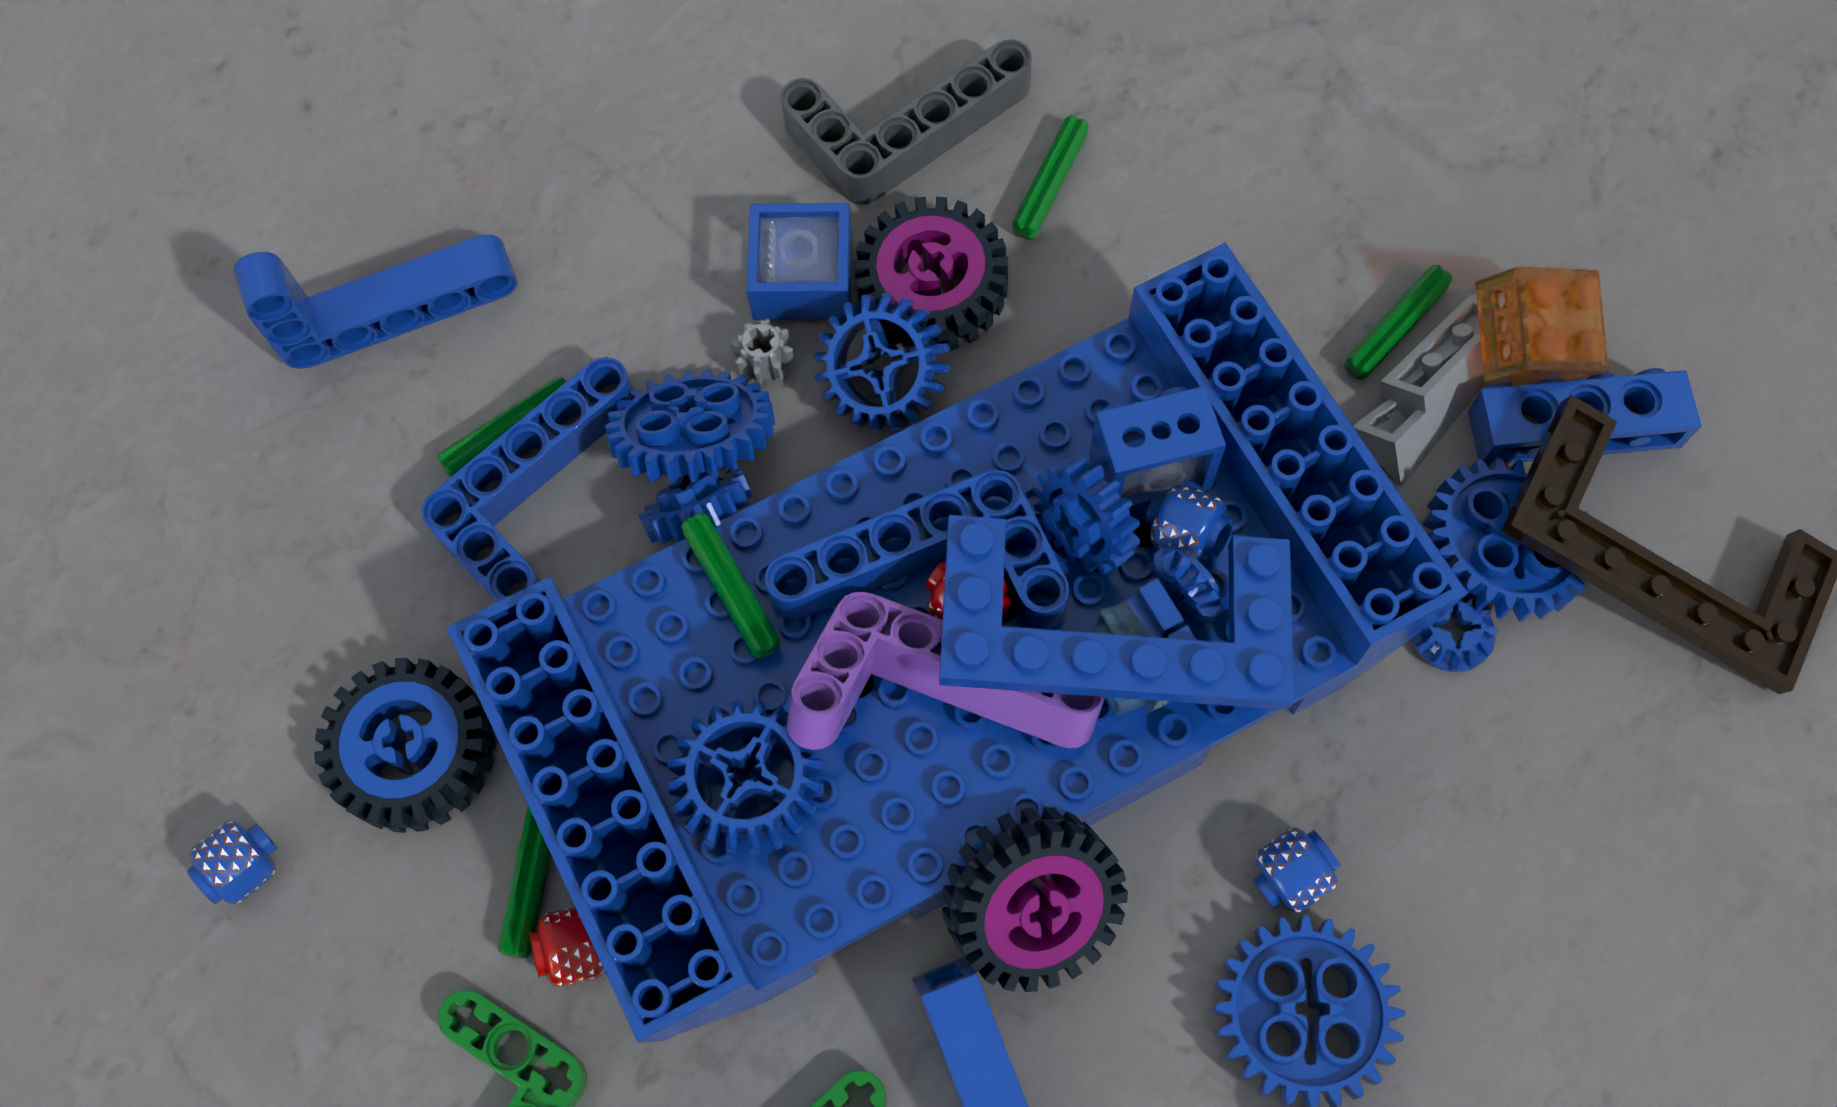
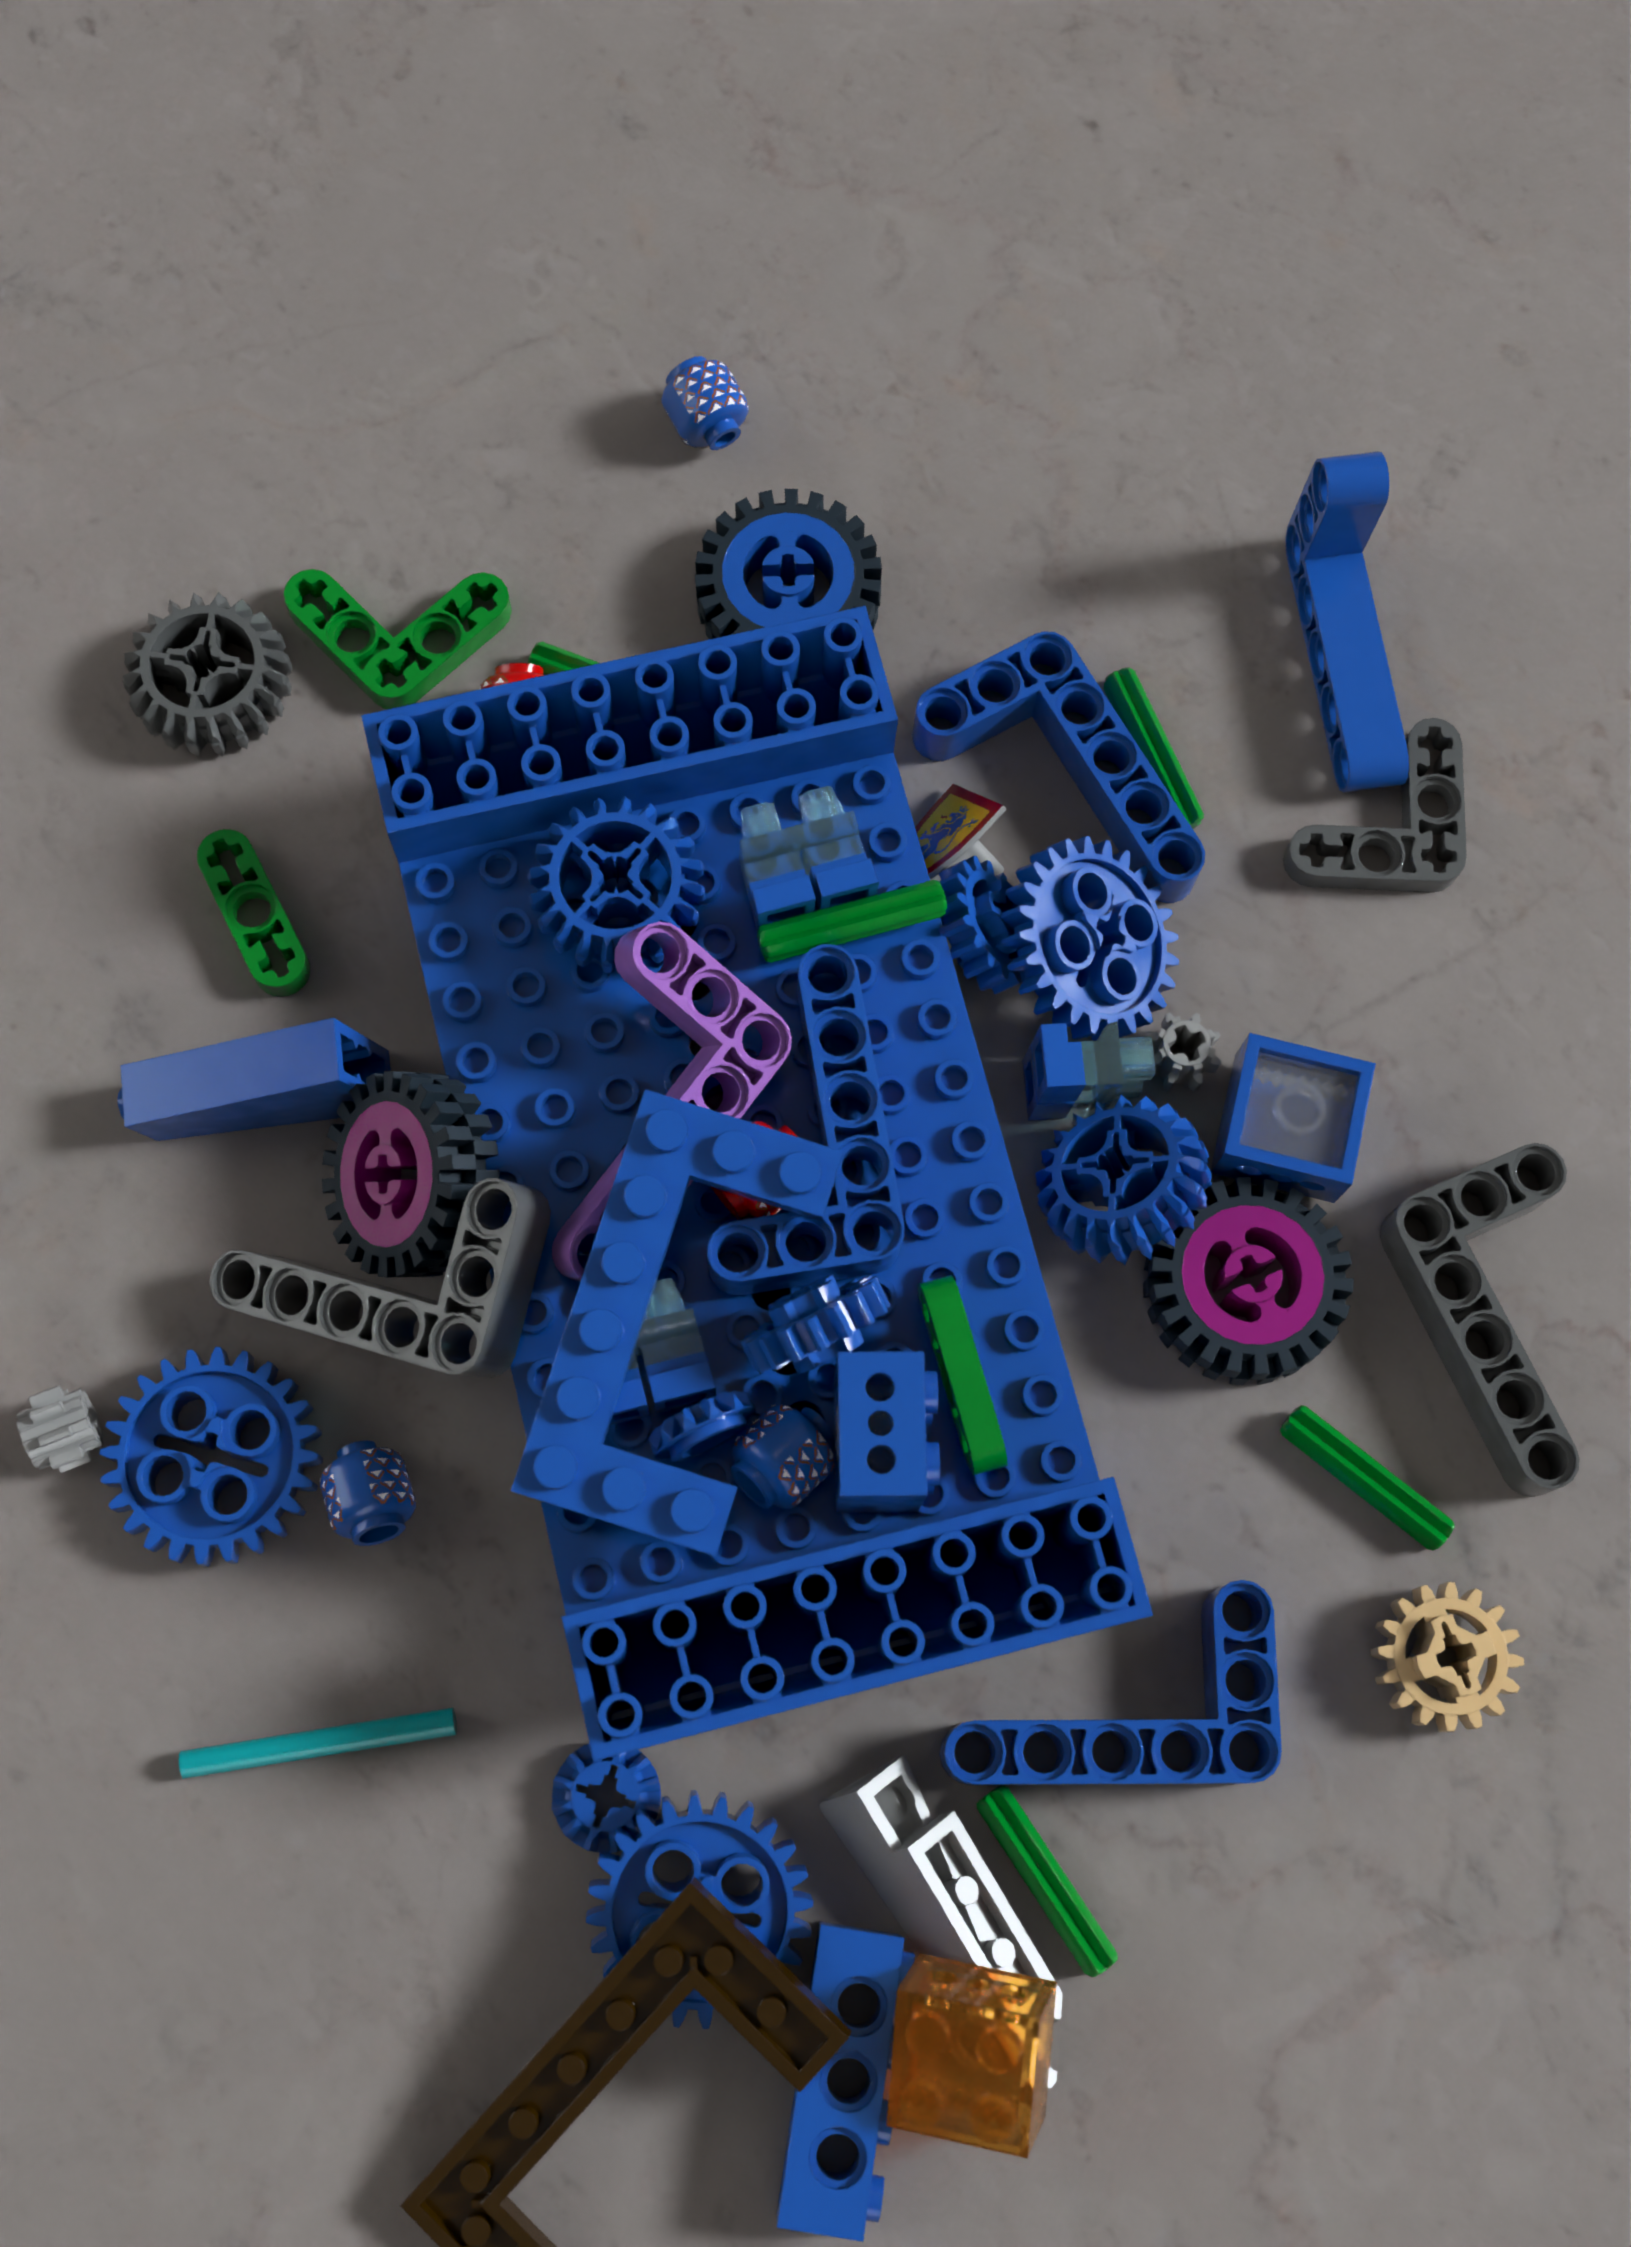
camera: 95 degrees right, 5 degrees up
(553, 233) = (1403, 845): none -> dark grey beam
(610, 544) = (953, 830): none -> shield
(697, 626) = (825, 846): none -> hips
(802, 410) = (1074, 1075): none -> hips
(1075, 418) = (962, 1375): none -> green beam
(1150, 878) = (389, 1313): none -> dark grey beam
(1161, 104) = (1458, 1680): none -> tan gear
(1282, 276) = (1143, 1738): none -> blue beam
(1495, 859) = (317, 1743): none -> teal bar

